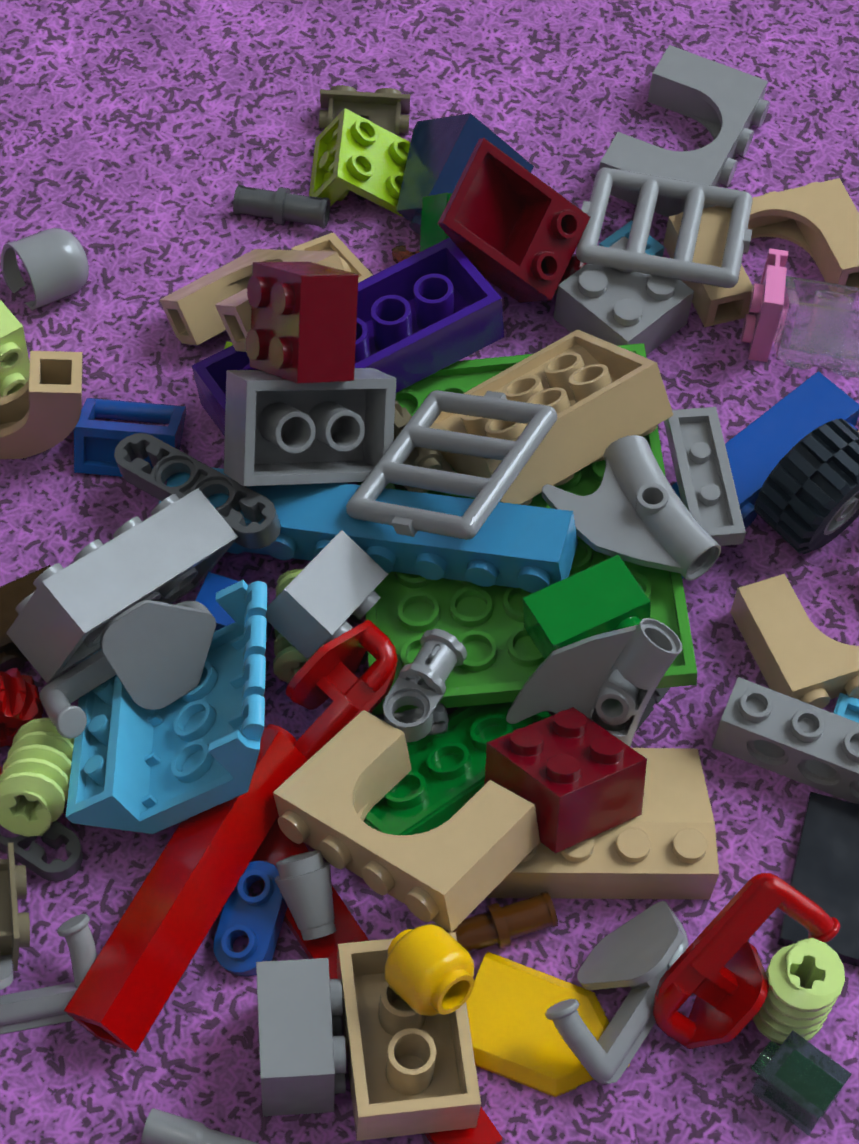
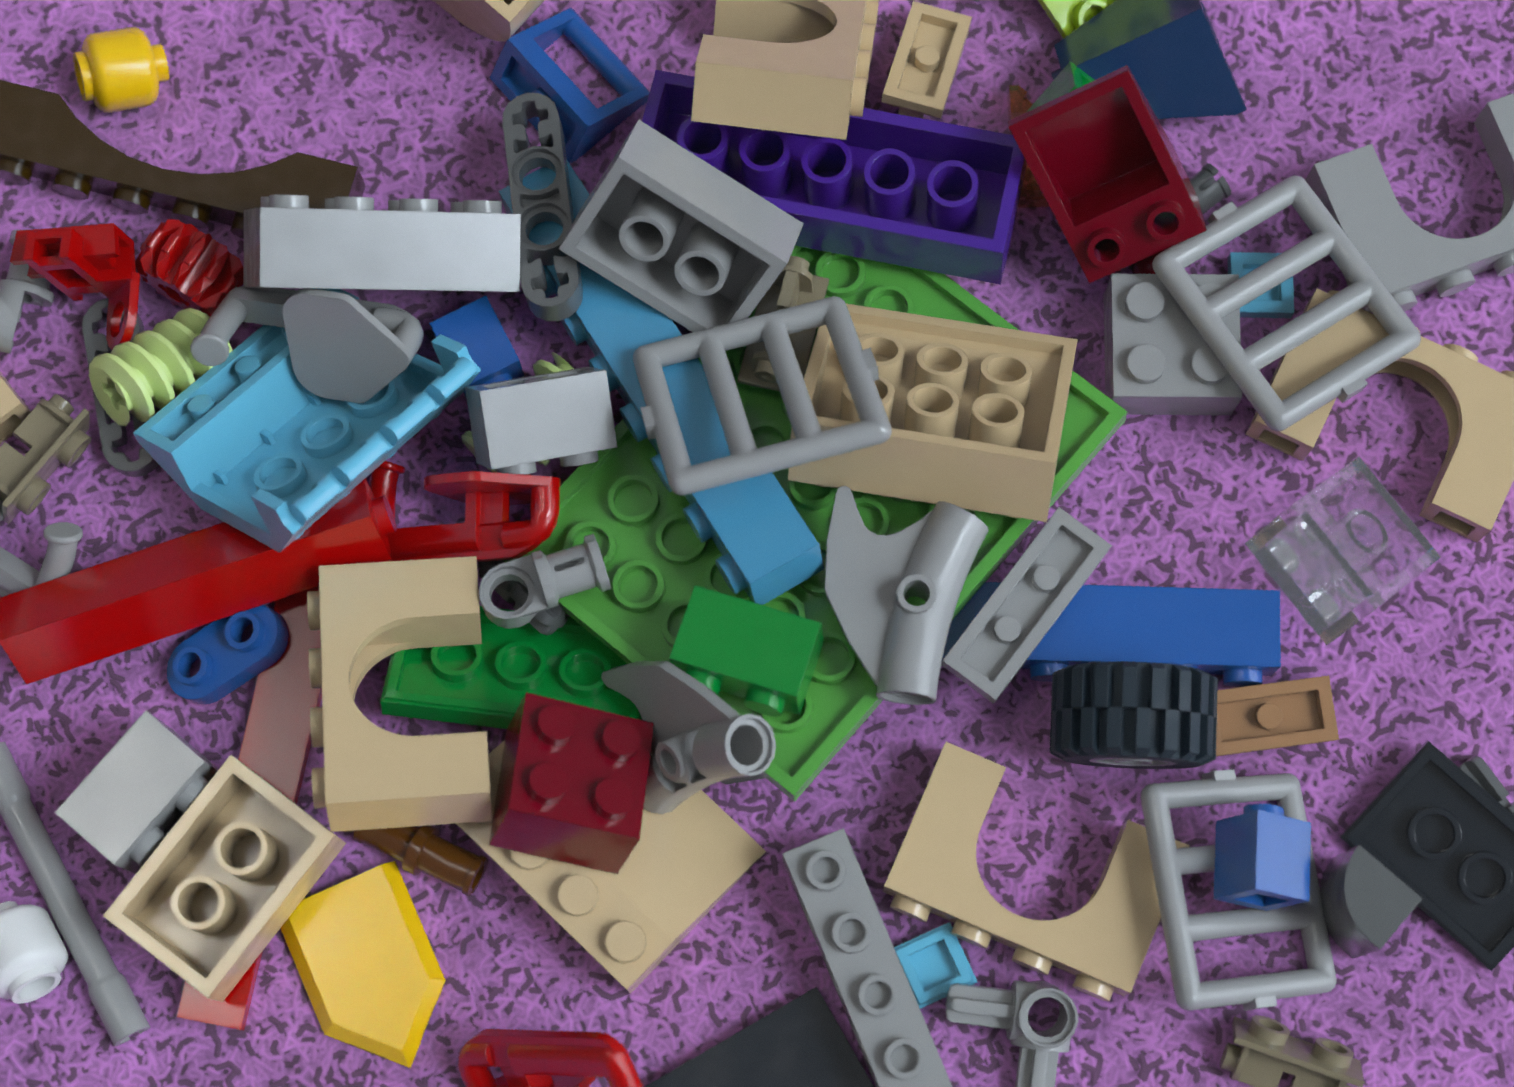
camera: 50 degrees right, 20 degrees up
(302, 321) = (731, 134): dark red brick -> none
(308, 893) = (274, 678): light grey cone -> none
(429, 970) = (262, 853): yellow head -> none
(632, 957) = (479, 990): light grey piece -> none
(767, 305) = (1300, 473): bright pink plate -> none

